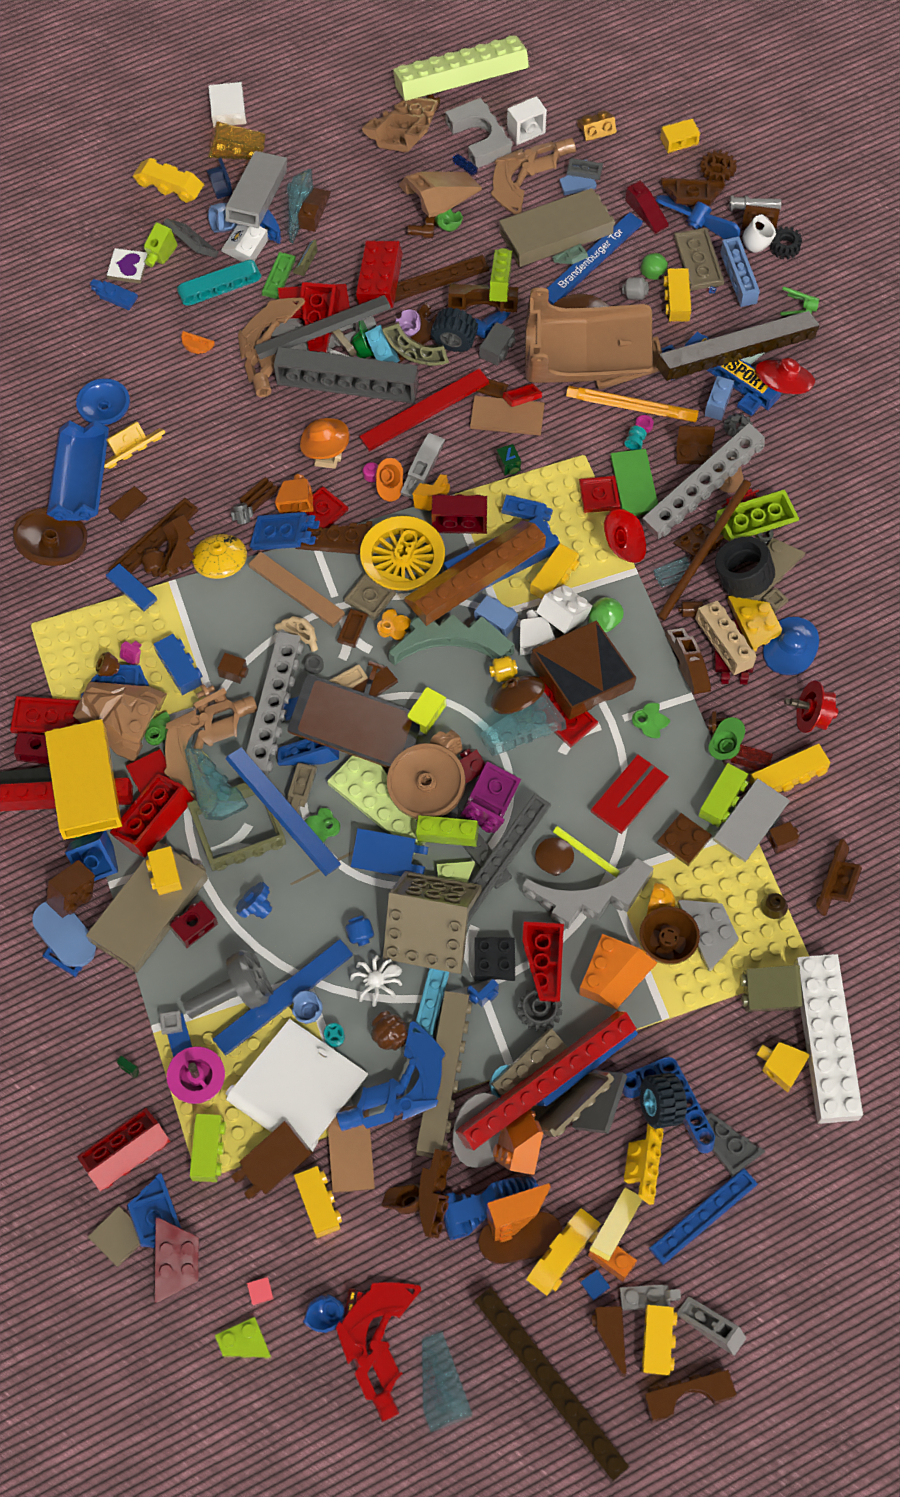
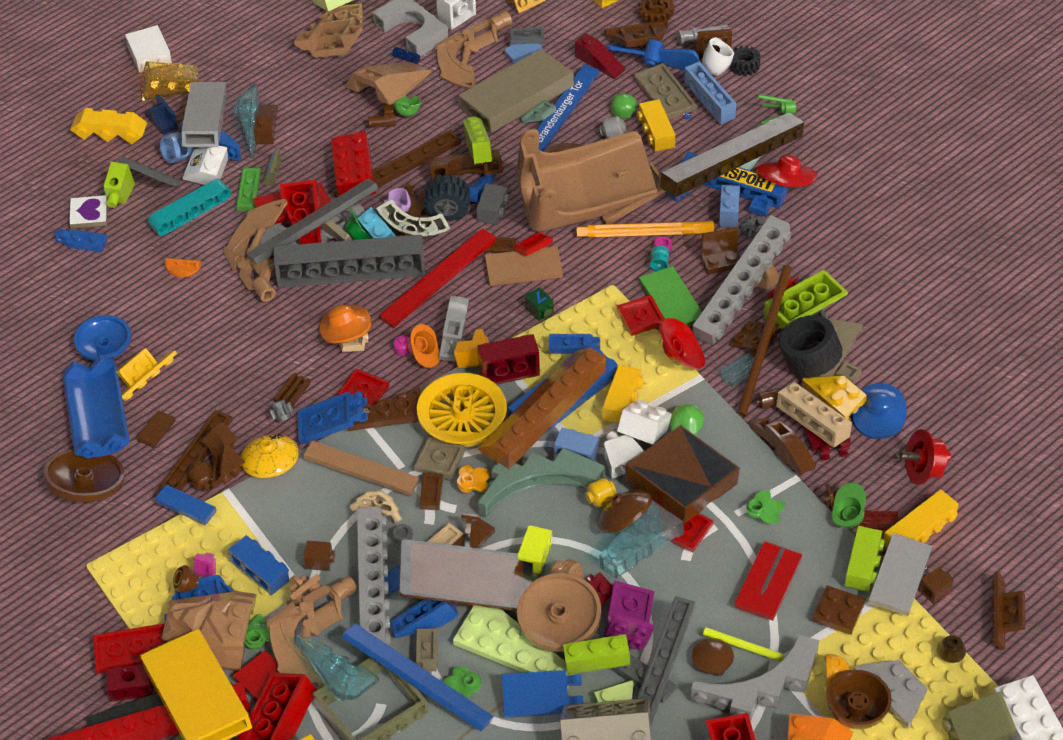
camera: 15 degrees left, 15 degrees down
(295, 496) = (331, 381): orange torso -> none

